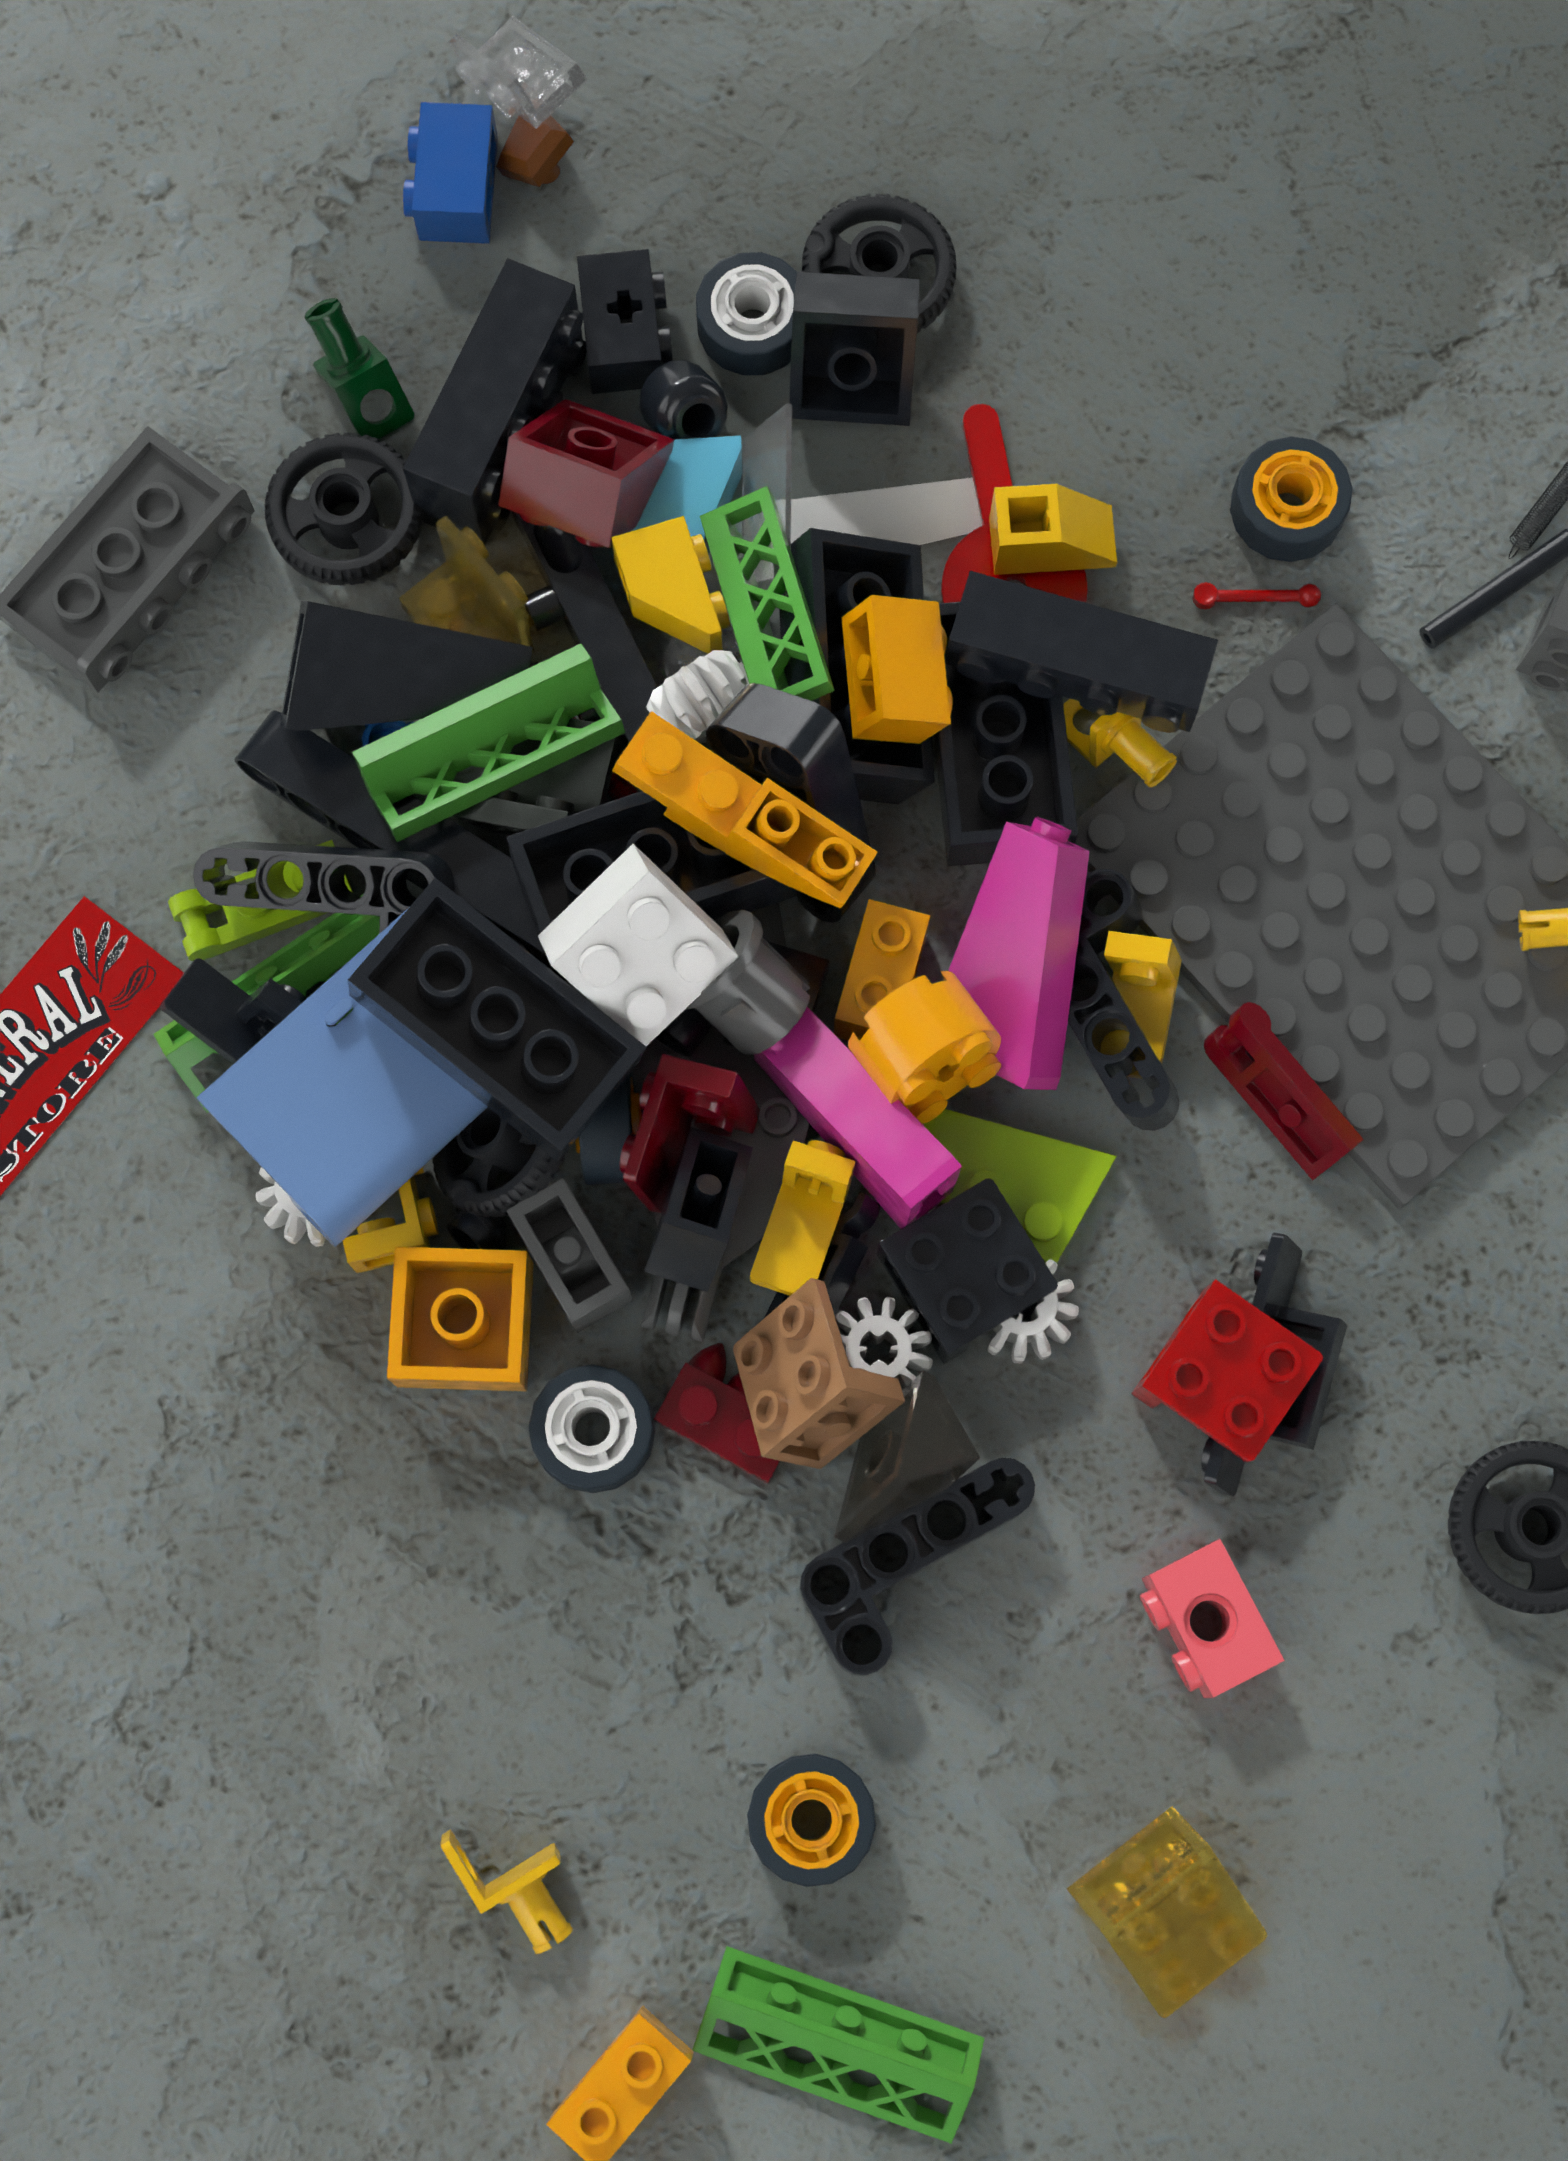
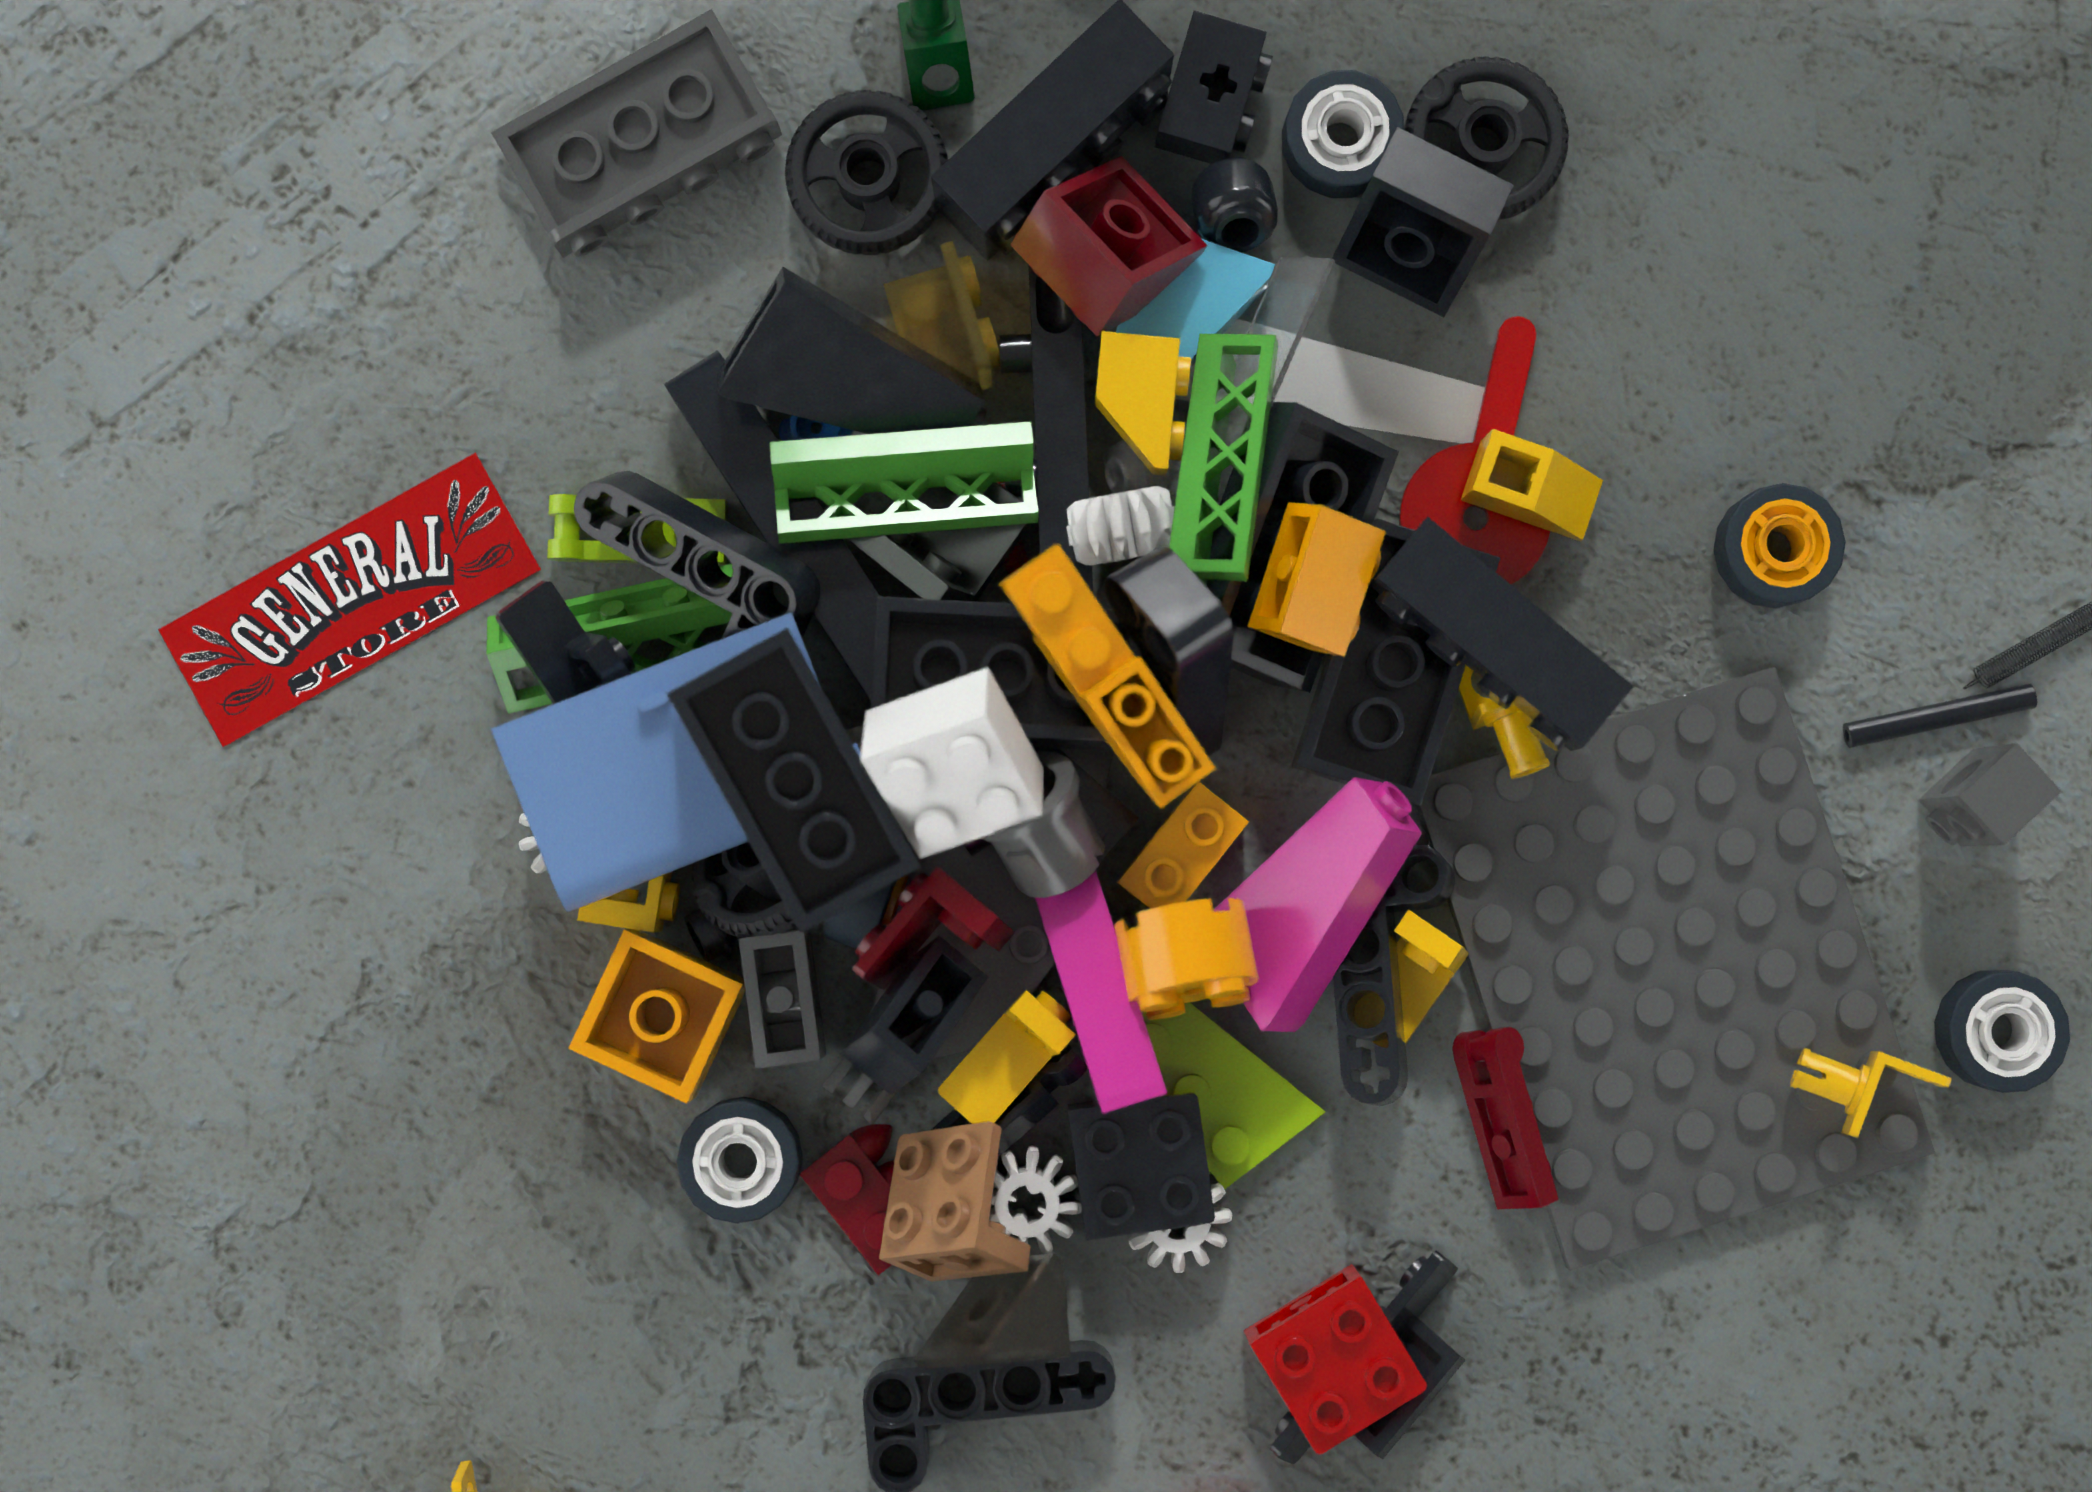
camera: 20 degrees right, 10 degrees up
(1206, 595) = (1657, 602): red hinge -> none

